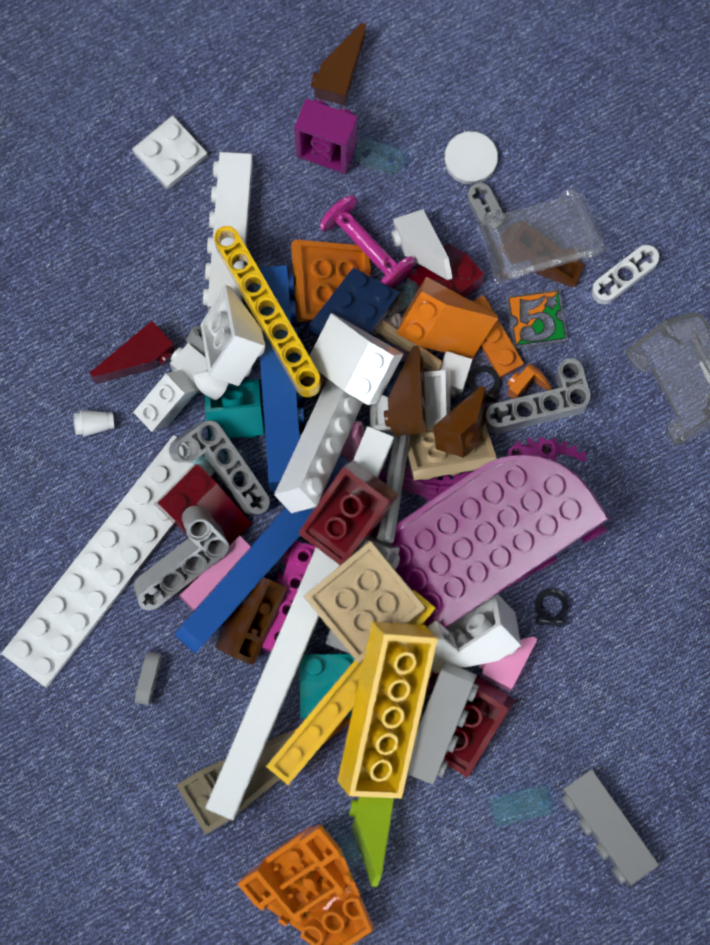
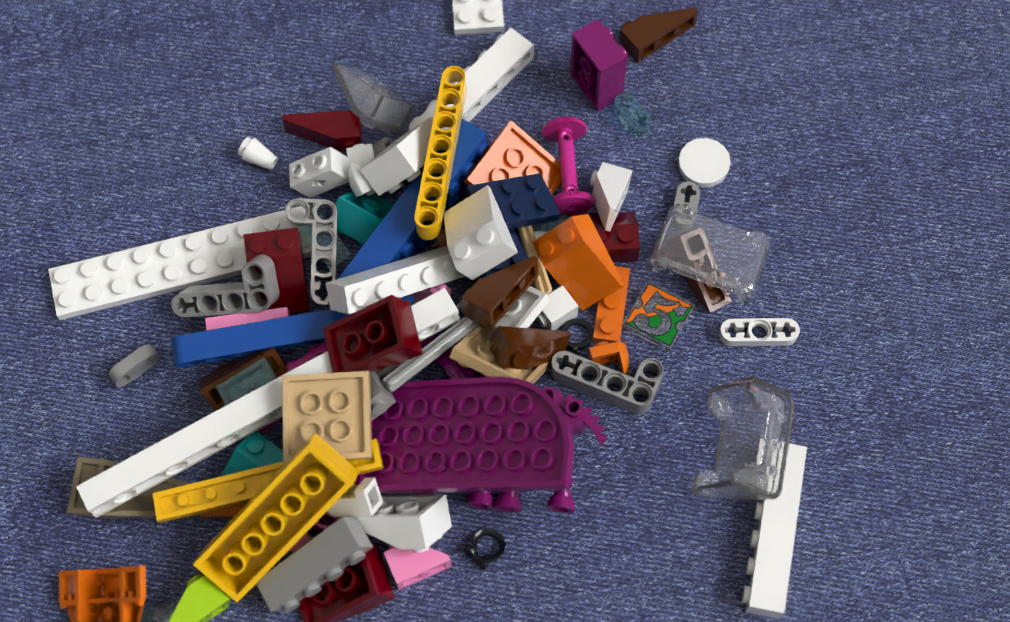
camera: 40 degrees right, 10 degrees down
(156, 303) = (373, 100): none -> clear slope
(268, 623) = (246, 381): none -> clear light blue plate

